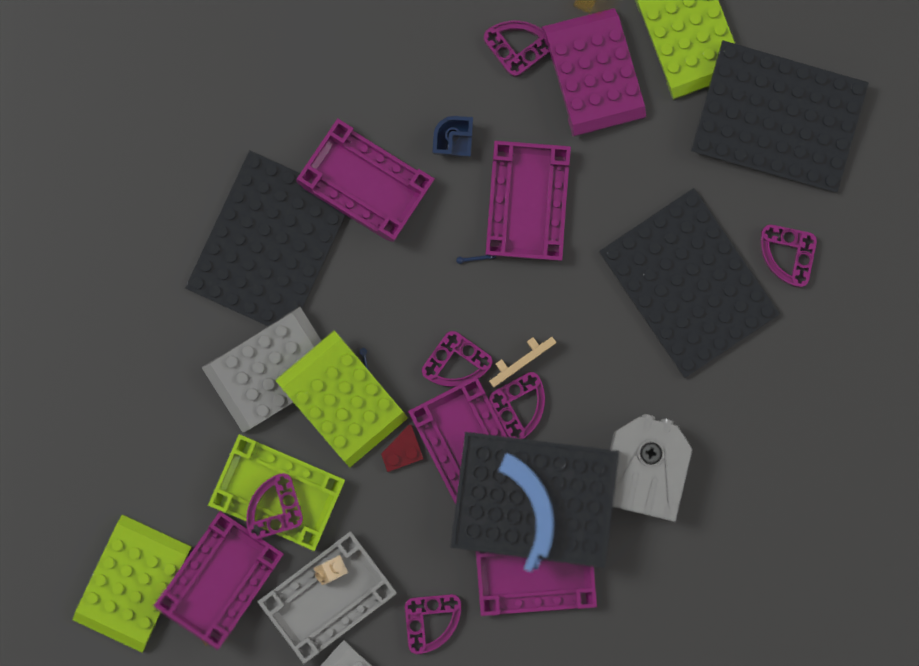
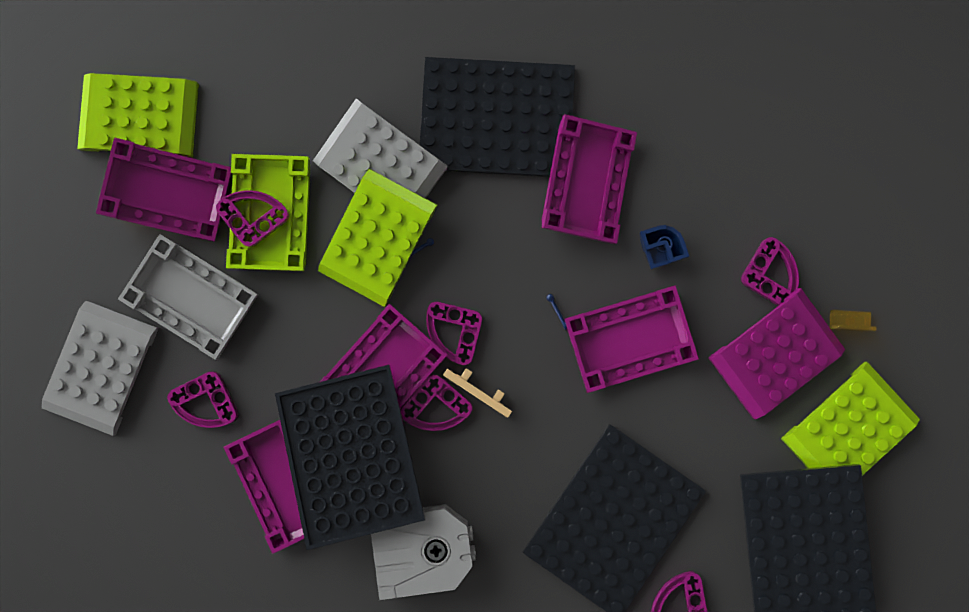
camera: 70 degrees right, 0 degrees up
(330, 570) = (213, 290): tan bracket -> none
(402, 450) = (352, 313): dark red wing -> none
(541, 503) = (348, 462): medium blue arch -> none

